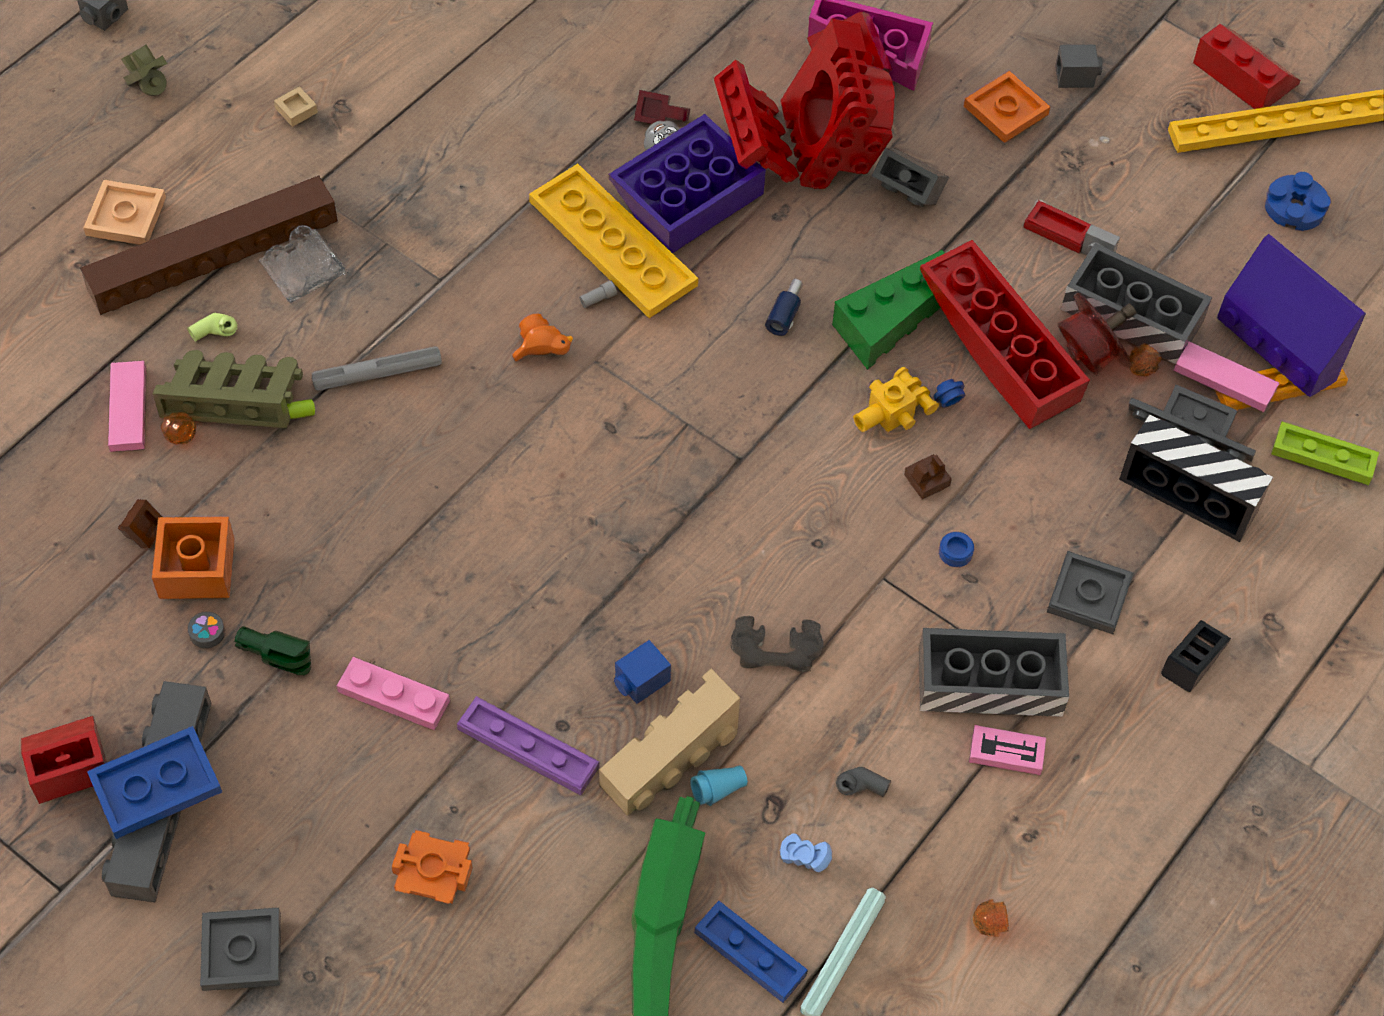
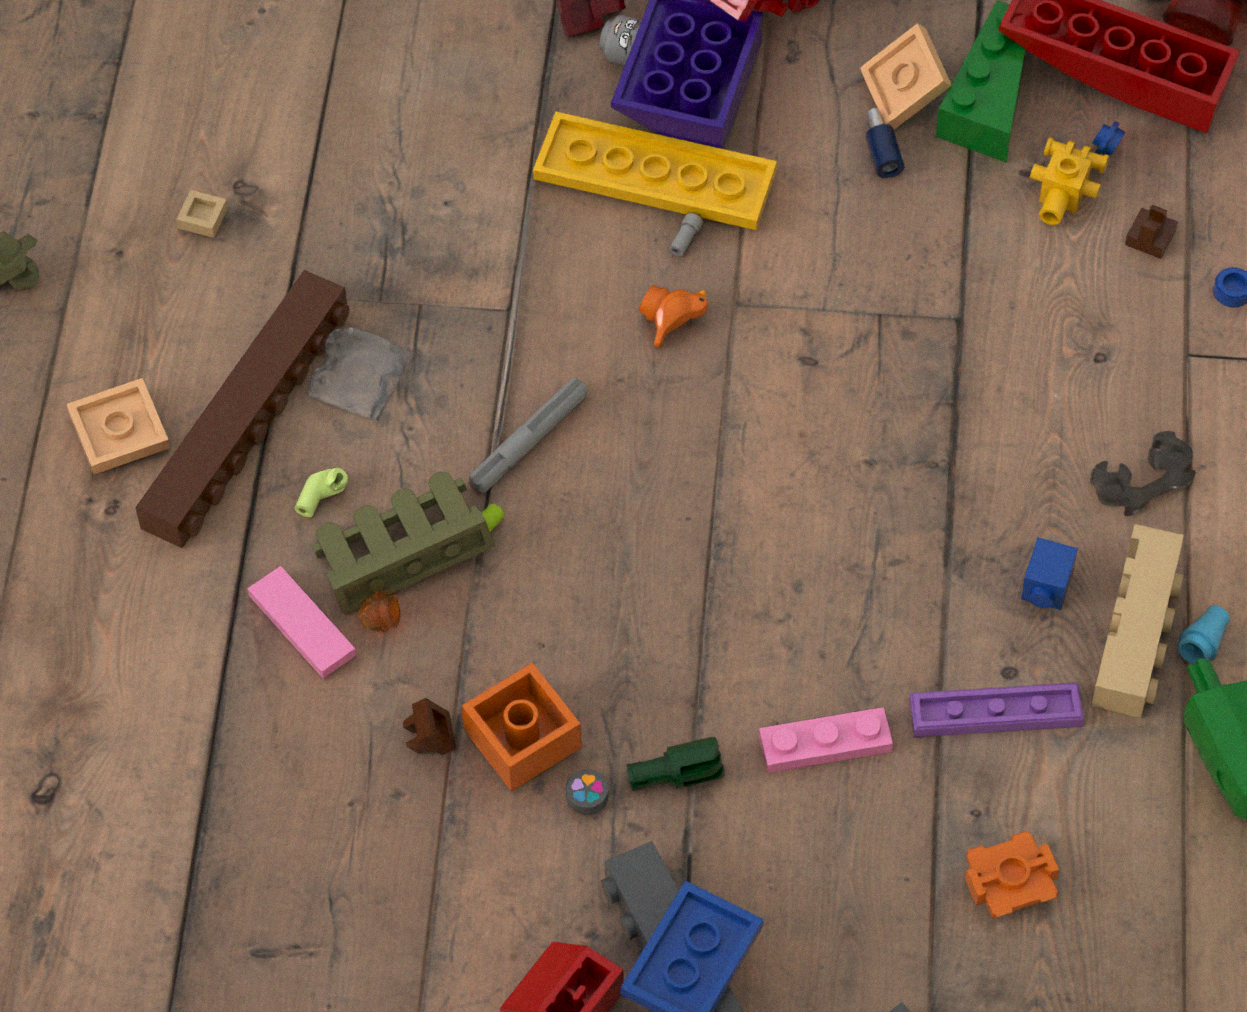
camera: 30 degrees left, 0 degrees up
(835, 268) = (905, 76): none -> light nougat plate

